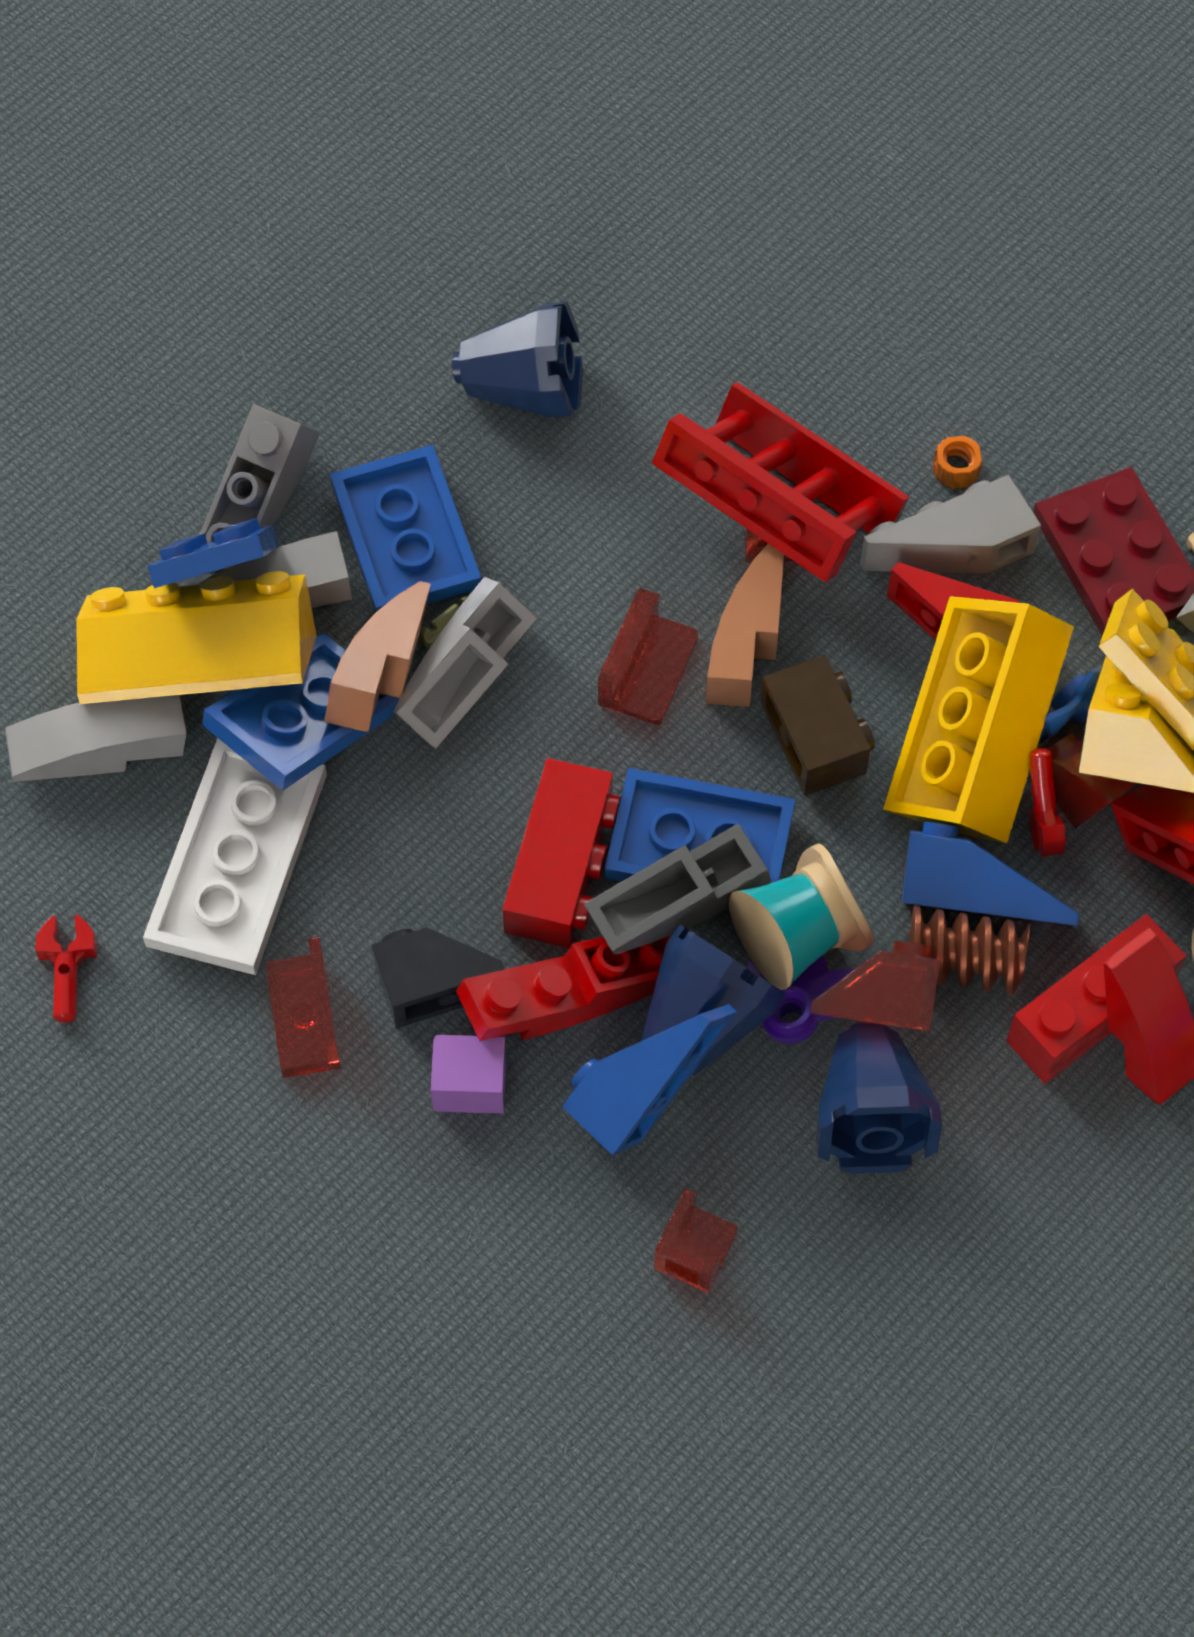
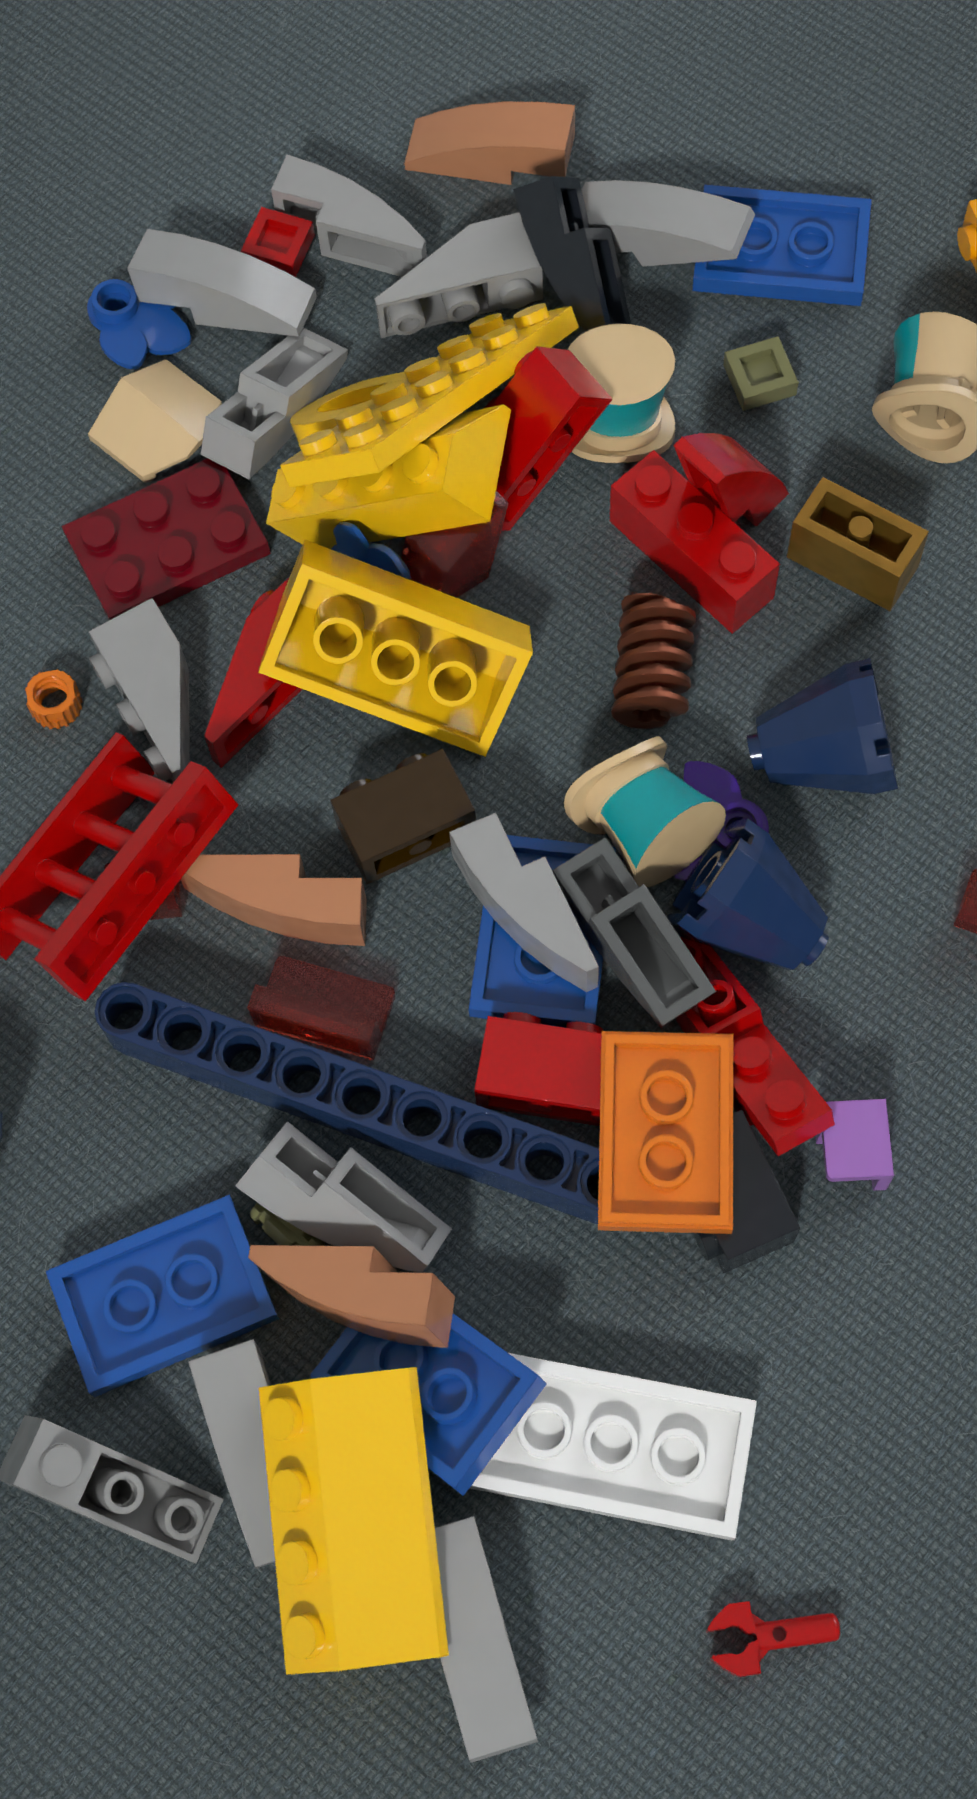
camera: 90 degrees left, 5 degrees up
(197, 557) = (245, 1499): blue plate -> none
(303, 1013) = (796, 1339): clear red panel -> none
(487, 900) = (666, 1132): none -> orange tile
(544, 705) = (340, 1081): none -> dark blue beam
(632, 1088) = (850, 949): blue slope -> none
(718, 801) = (524, 900): none -> light grey slope
(886, 989) = (726, 722): clear red slope -> none
(963, 876) = (574, 663): blue slope -> none
(1044, 823) = (491, 594): red bar -> none
(1083, 1145) = (856, 543): none -> pearl gold brick

